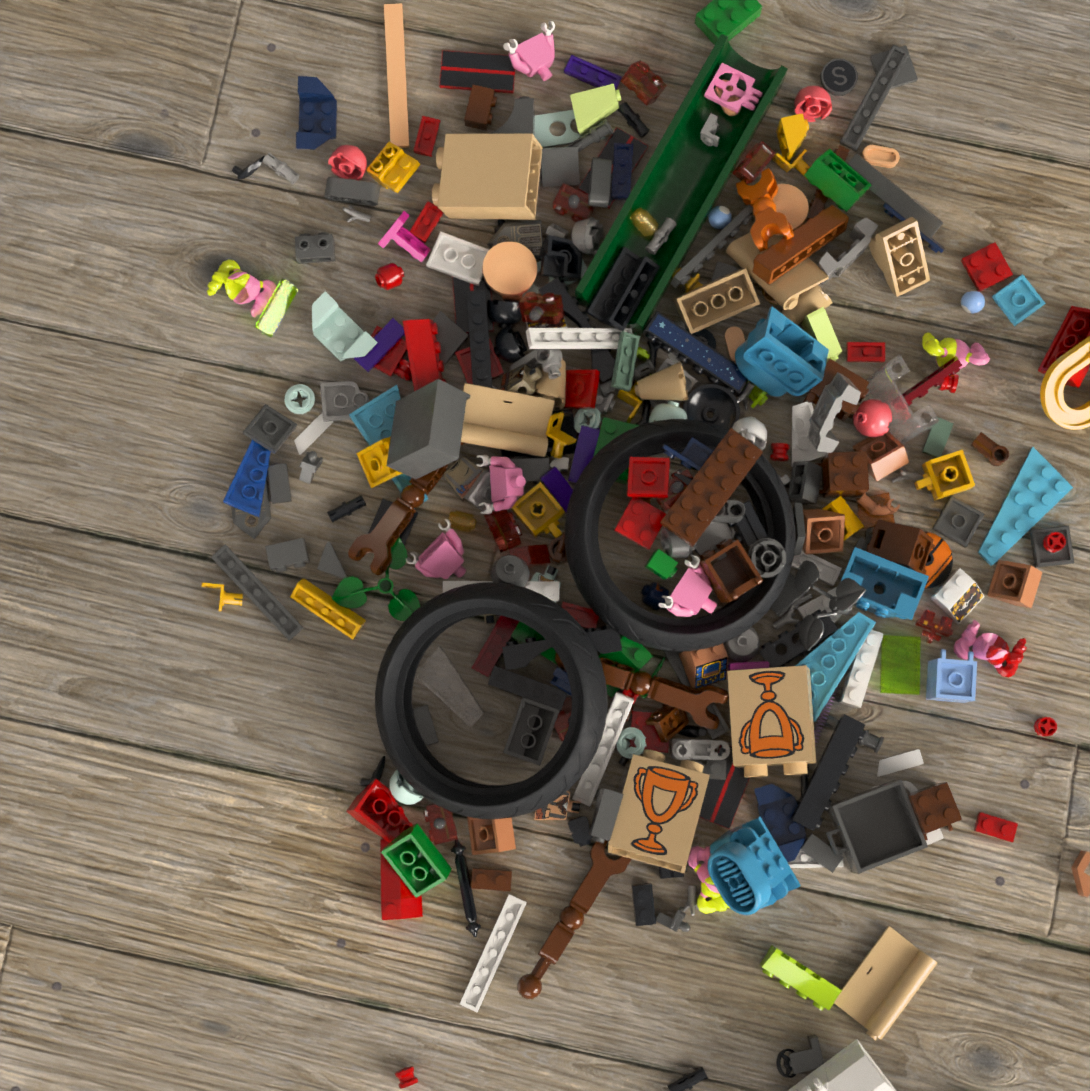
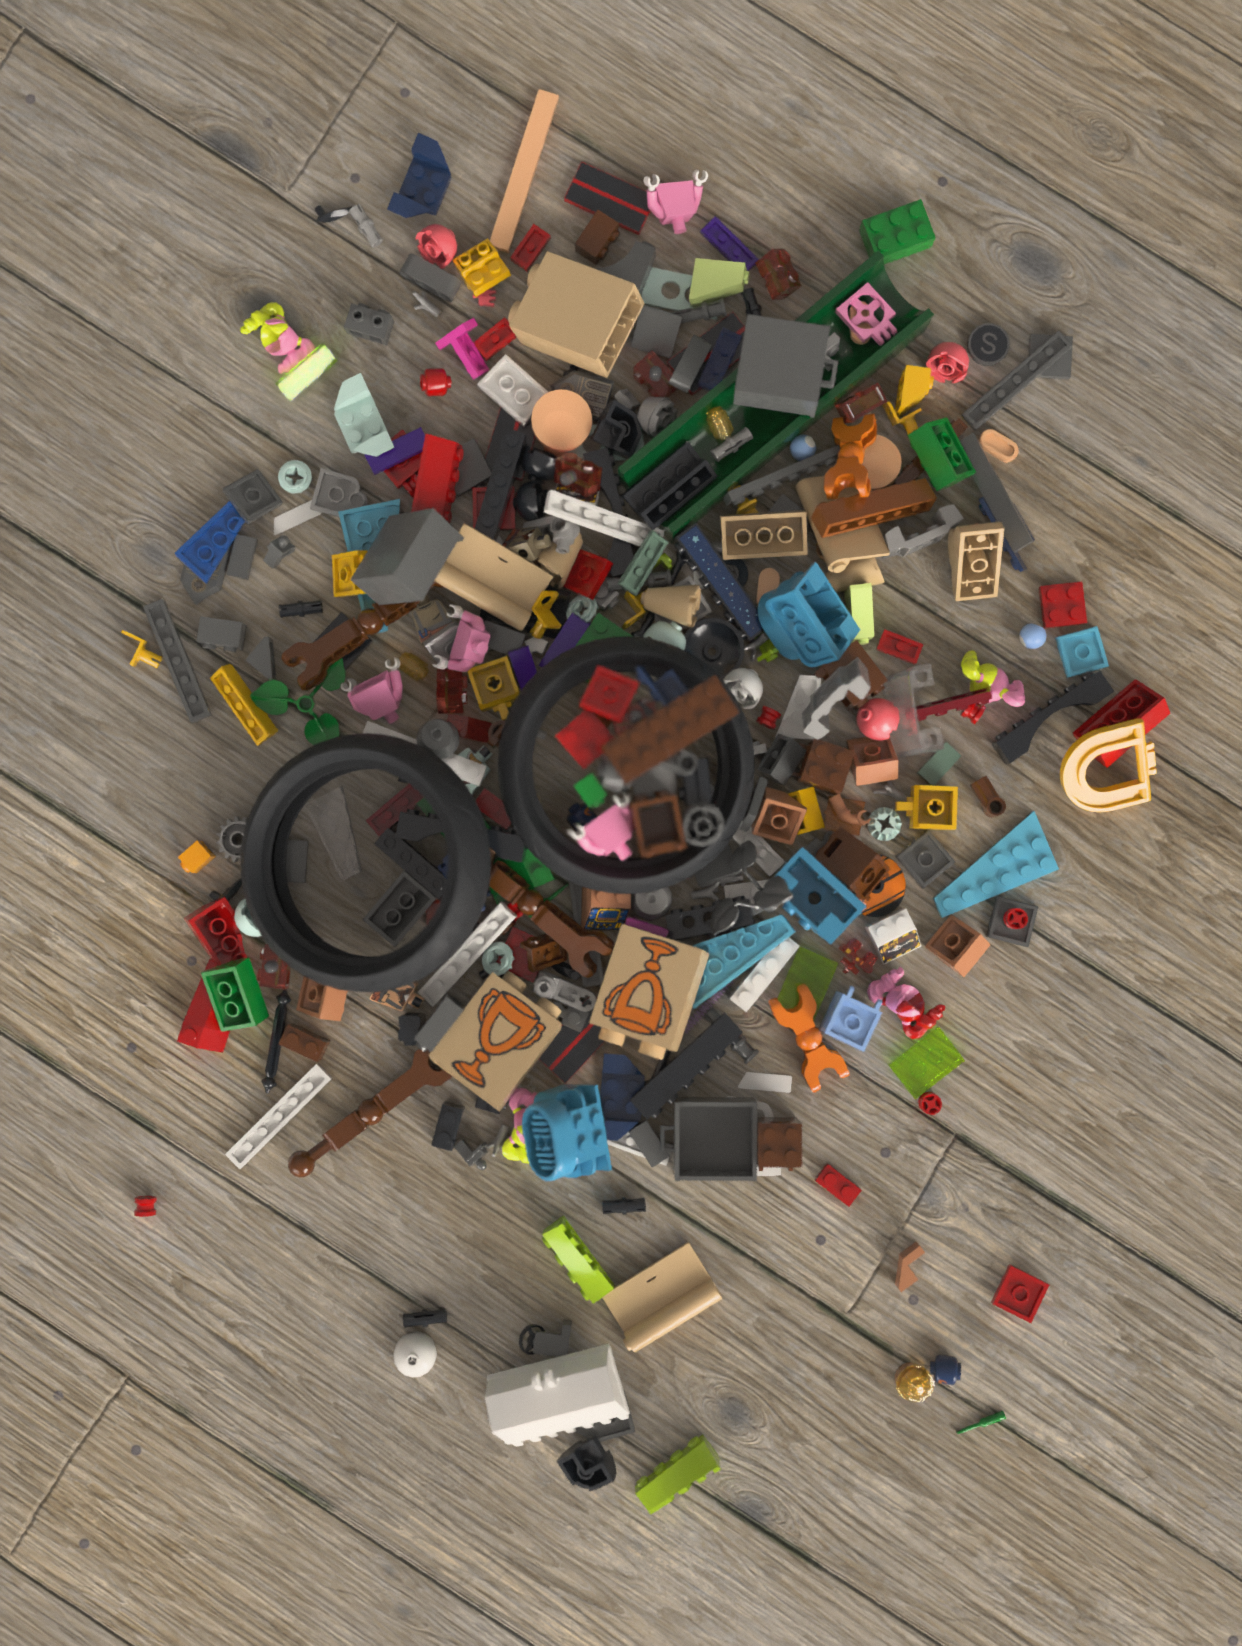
camera: 25 degrees right, 5 degrees up
(336, 755) = (196, 857): none -> light orange brick
(359, 729) = (229, 836): none -> light grey gear
(404, 192) = (485, 298): none -> coral piece
(682, 155) = (783, 365): none -> dark grey container
(821, 915) = (624, 1206): none -> black pin
(906, 511) = (875, 827): none -> light aqua gear
(921, 709) = (808, 1038): none -> orange piece
(995, 394) = (1017, 741): none -> black arch
(1028, 693) = (926, 1062): none -> clear neon green tile

